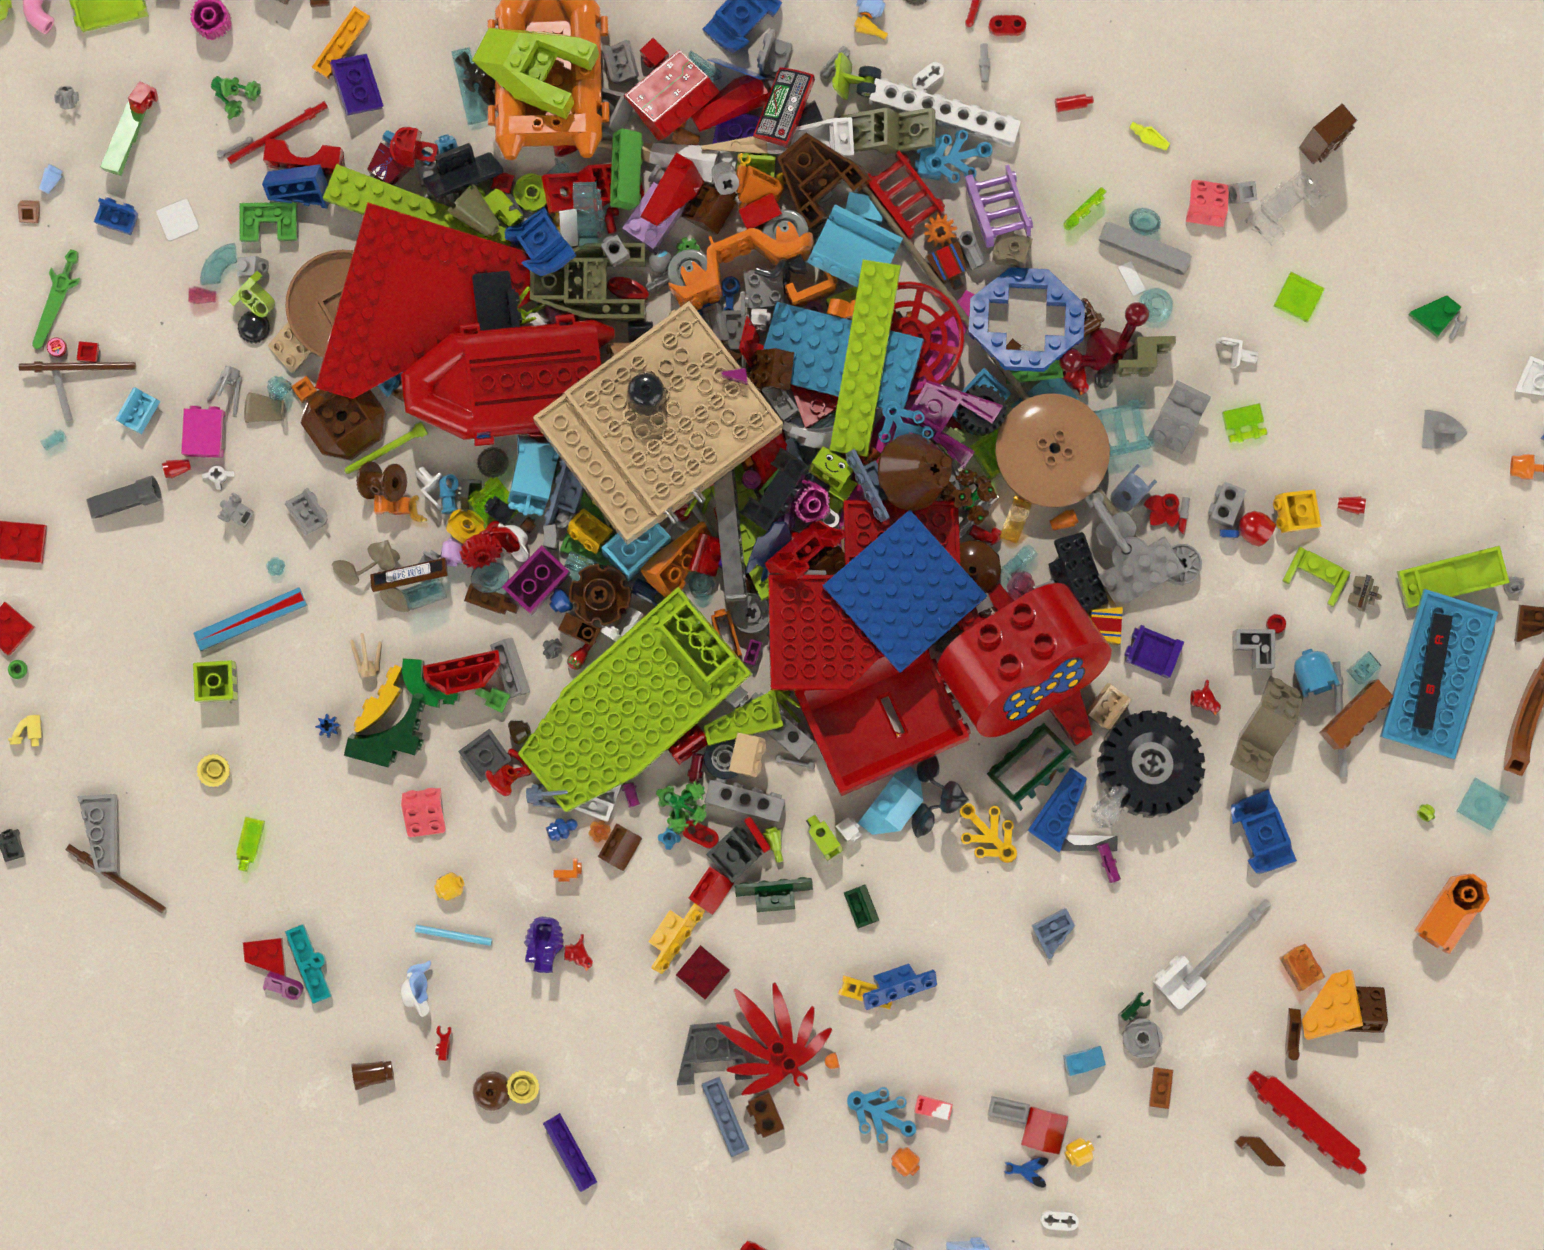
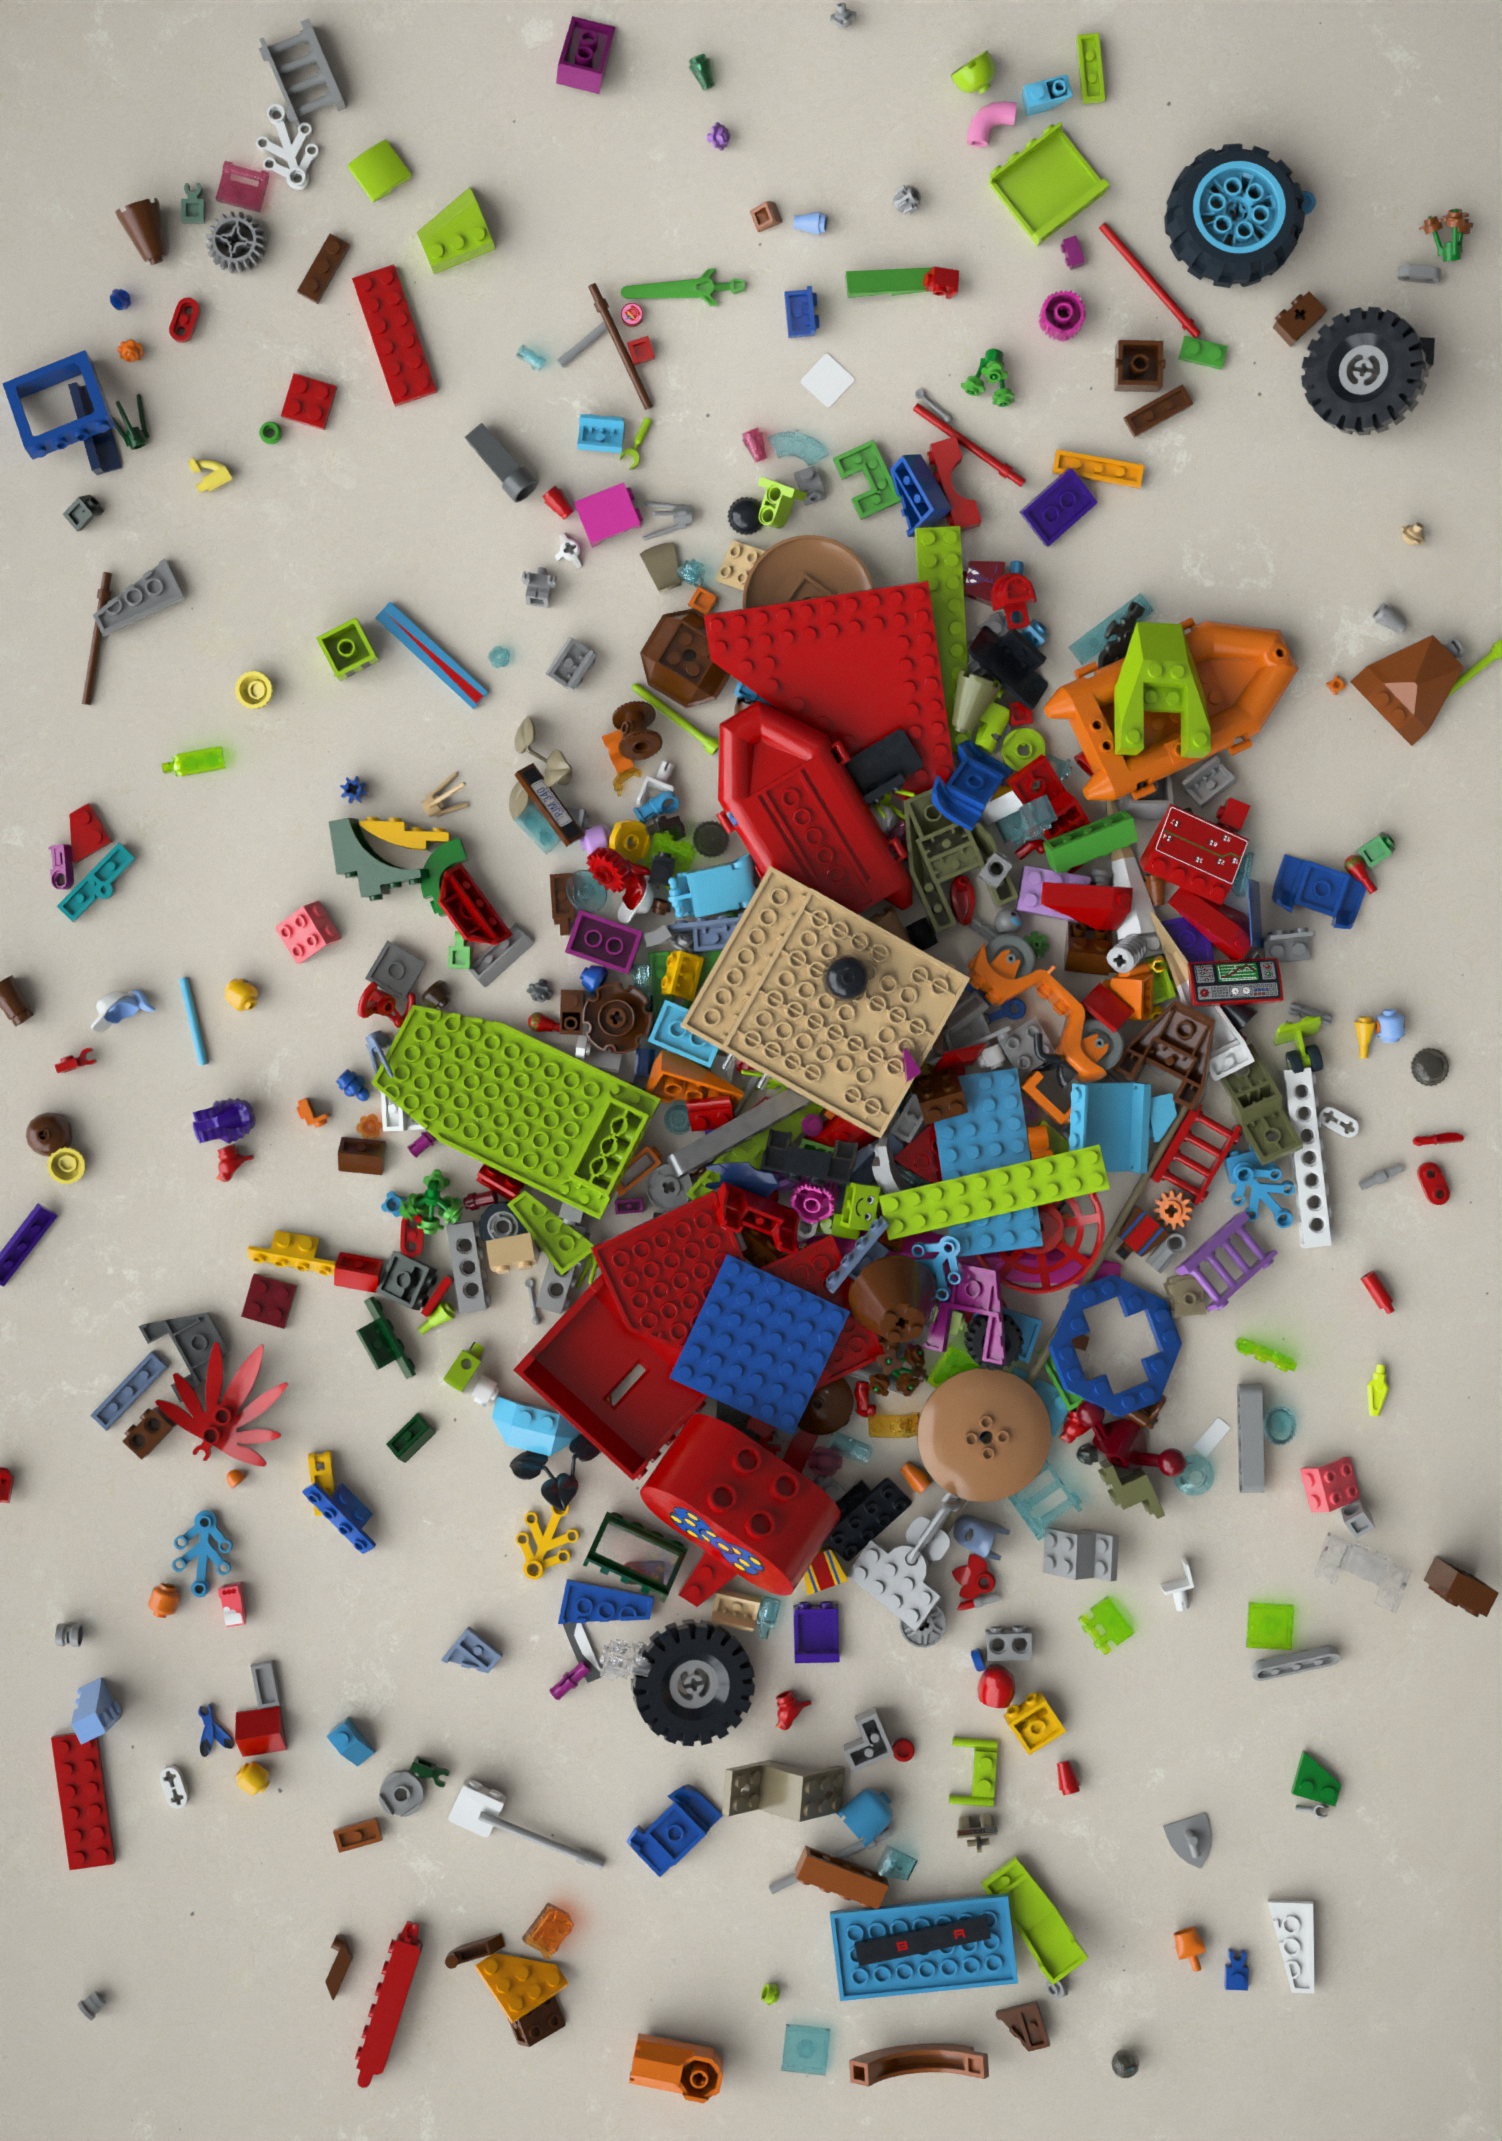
camera: 65 degrees right, 5 degrees up
(156, 384) = (638, 440): none -> lime piece
(1124, 684) = (767, 1615): none -> clear light blue hinge
(1336, 289) = (1295, 1663): none -> light grey plate

